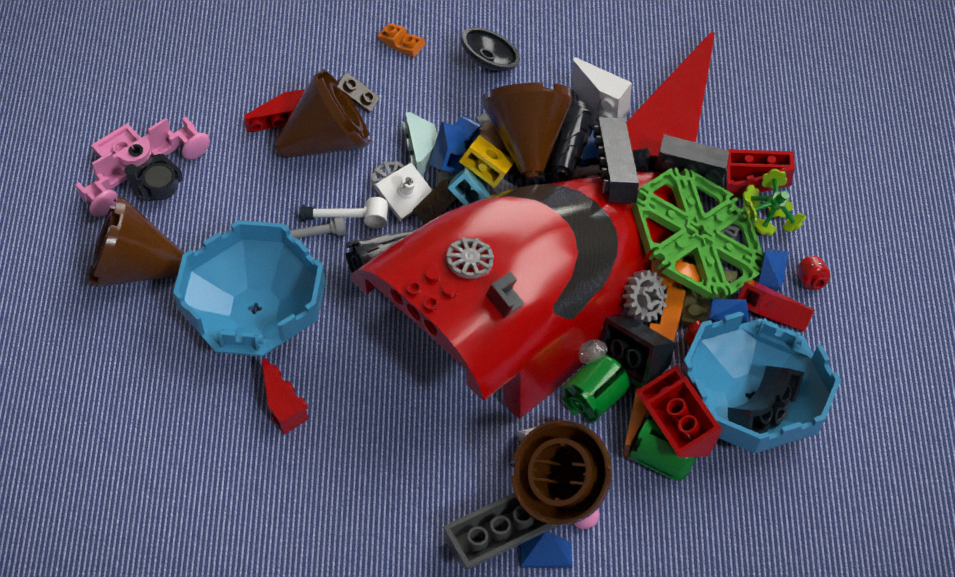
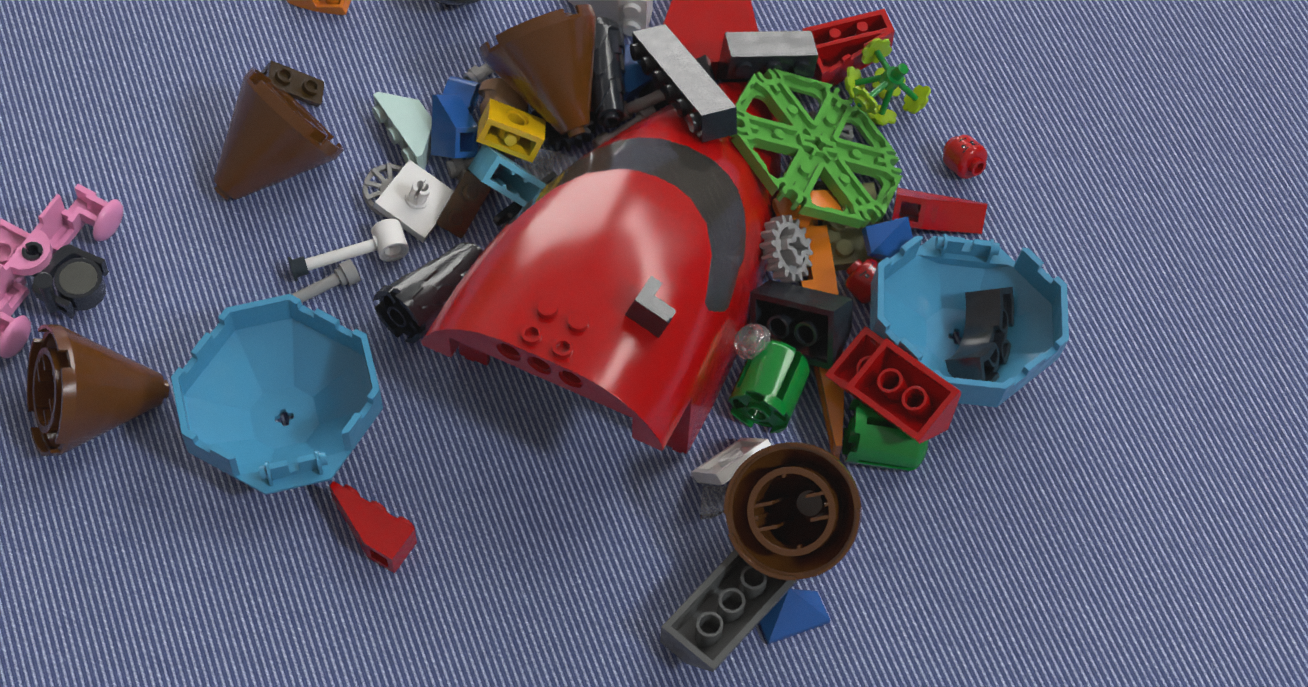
camera: 25 degrees left, 5 degrees up
(273, 113) = (197, 141): red slope -> none
(469, 258) = (585, 272): light grey wheel -> none
(773, 268) = (913, 165): blue slope -> none

